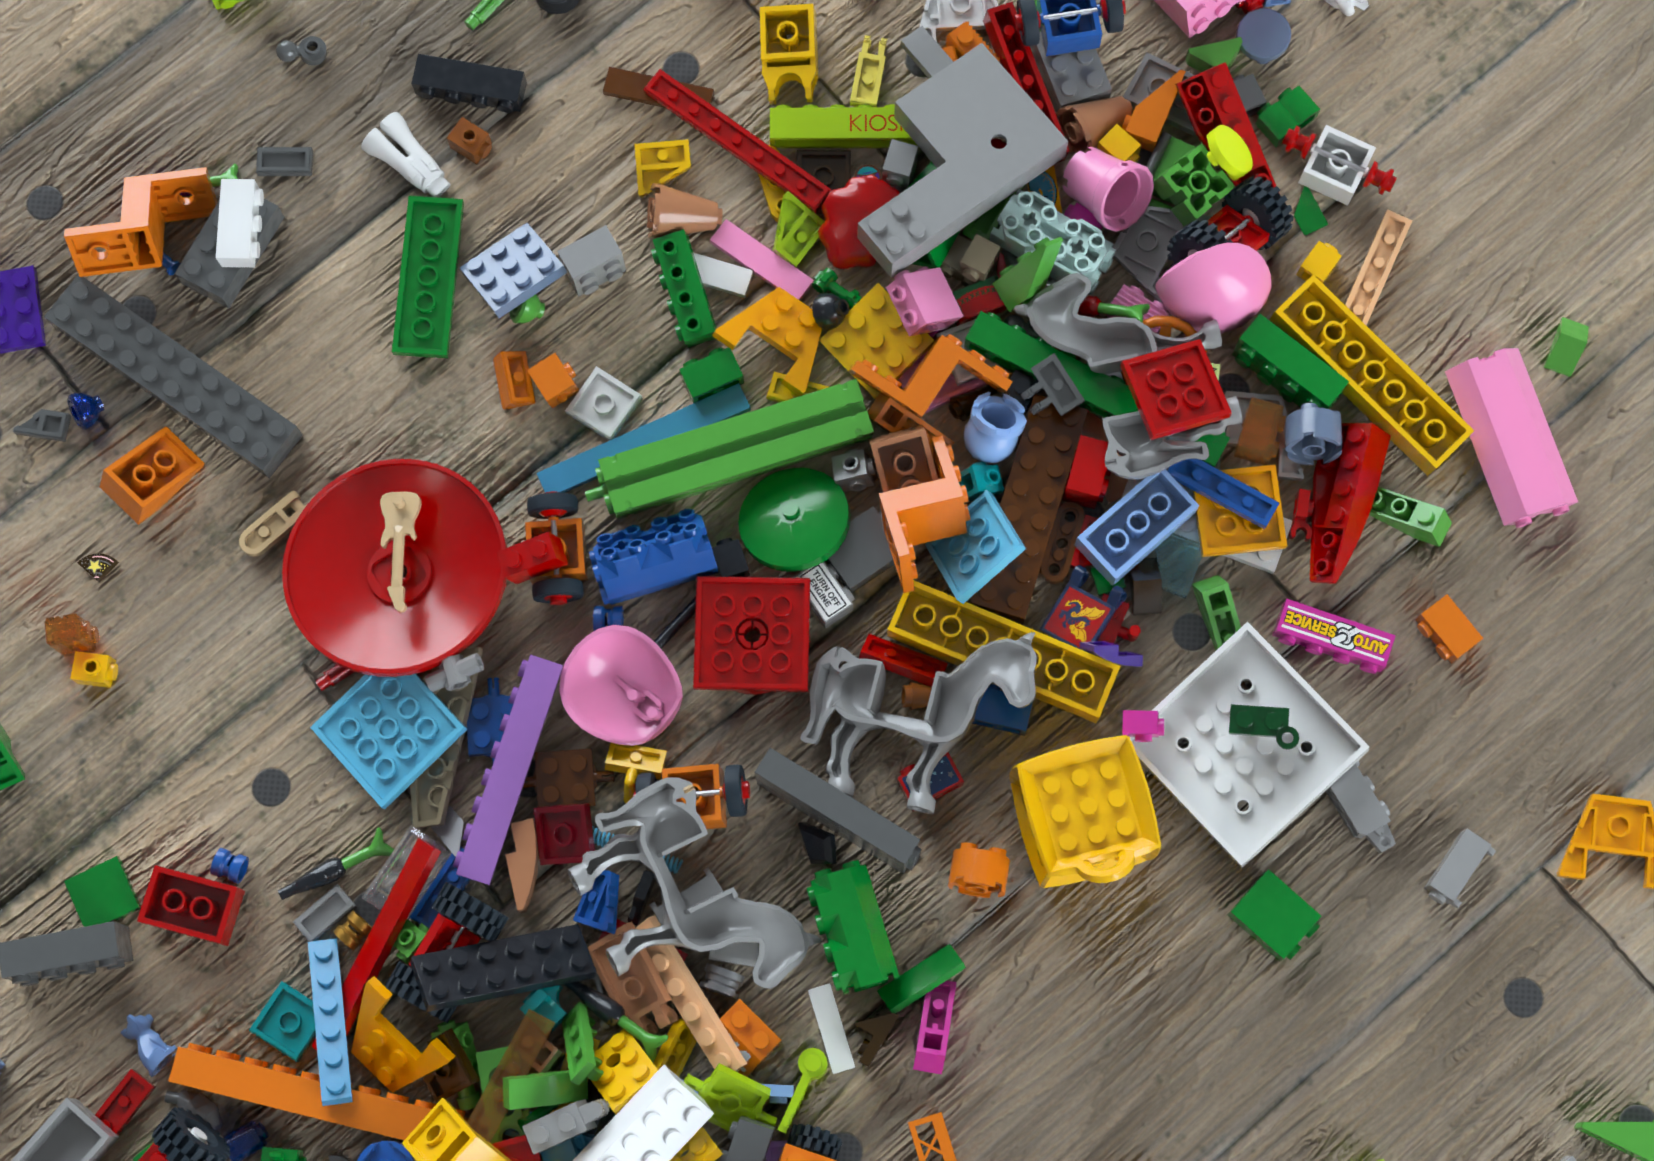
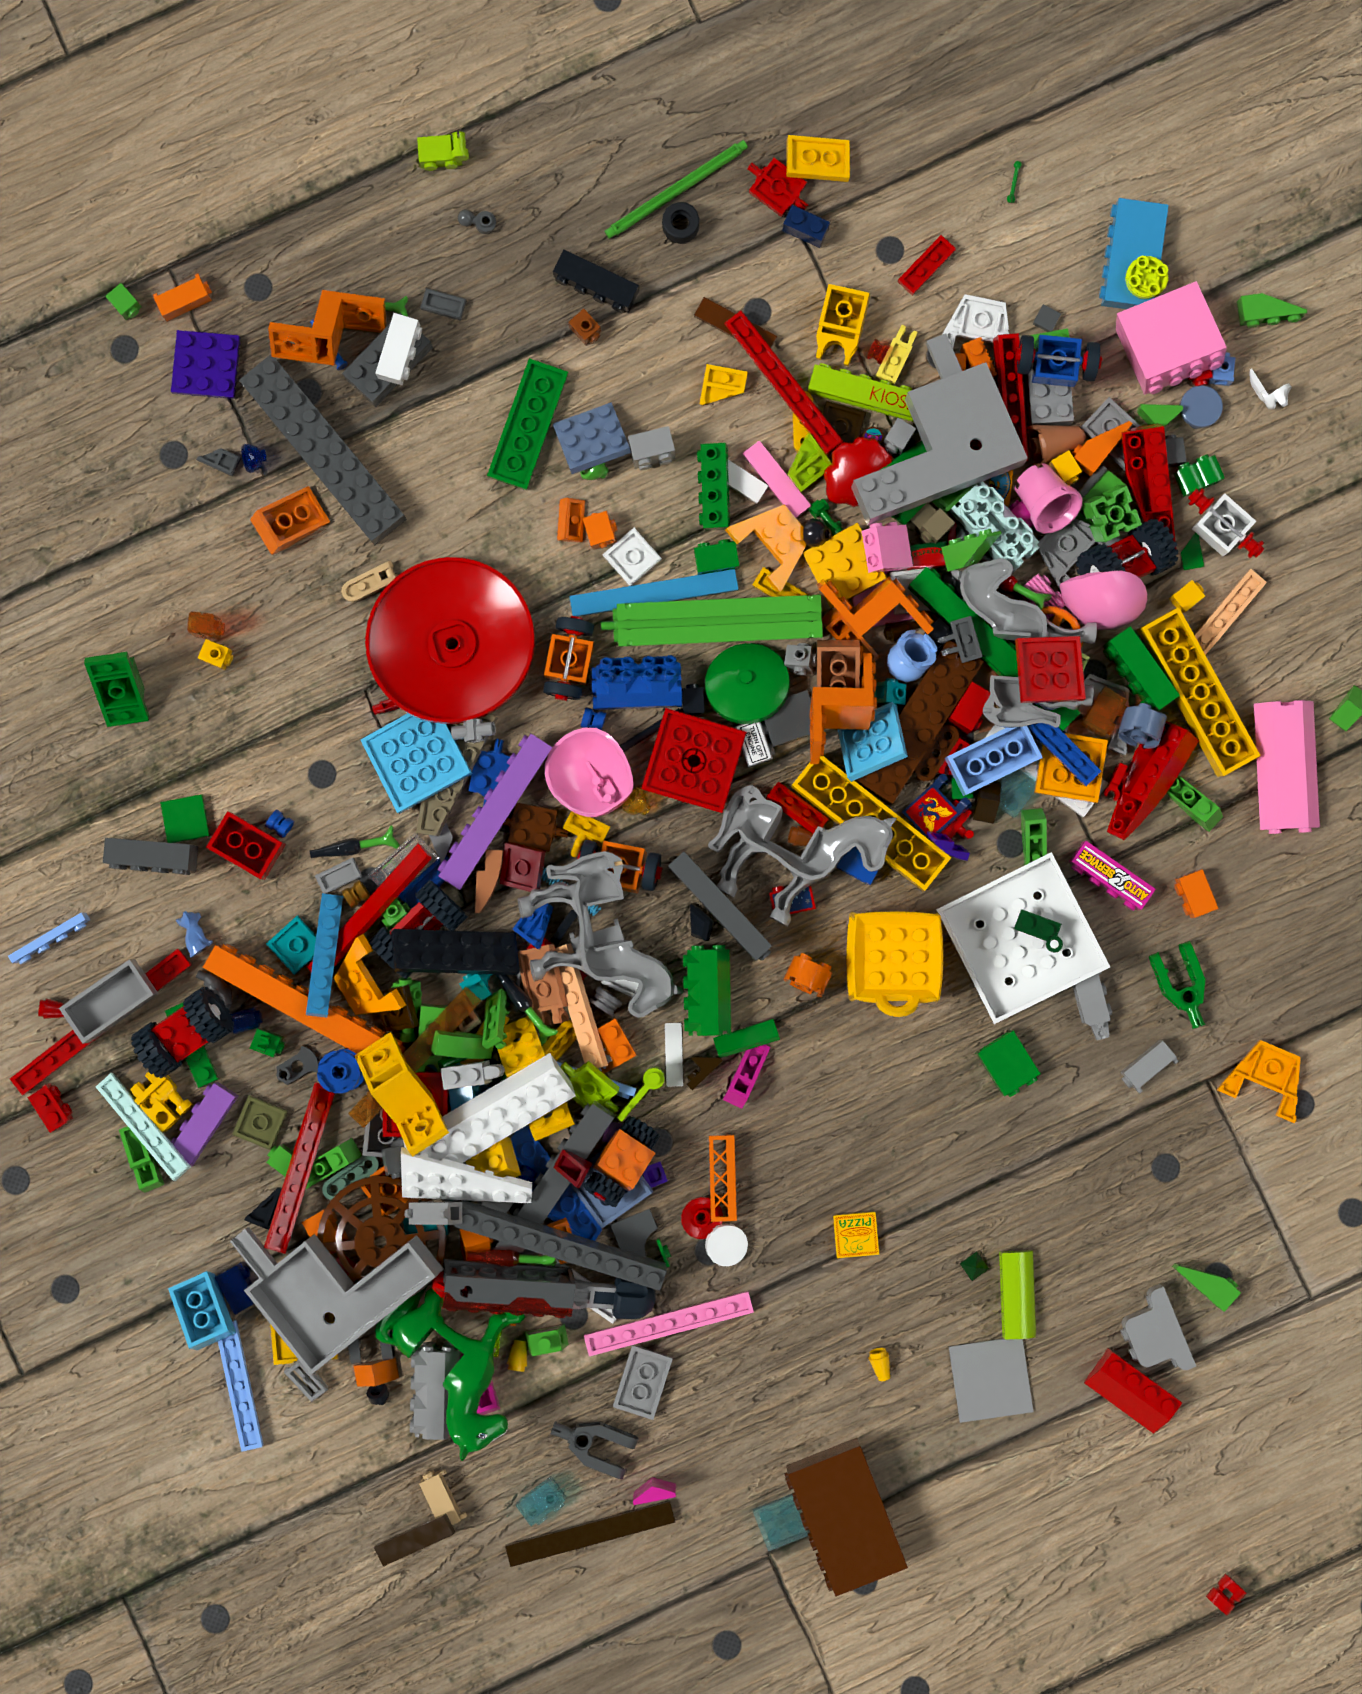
camera: 15 degrees right, 10 degrees up
(98, 565) = (235, 577): dark brown tile -> none
(400, 514) = (463, 602): tan piece -> none
(418, 167) = (542, 337): white piece -> none
(532, 558) = (550, 663): red brick -> none
(677, 210) = (724, 426): nougat cone -> none
(693, 710) = (637, 803): none -> clear yellow brick
(844, 74) = (878, 351): none -> clear red wheel
(1142, 725) = (953, 906): dark pink brick -> none
(1229, 152) = (1145, 496): neon yellow tile -> none
(1484, 737) = (1196, 989): none -> green piece

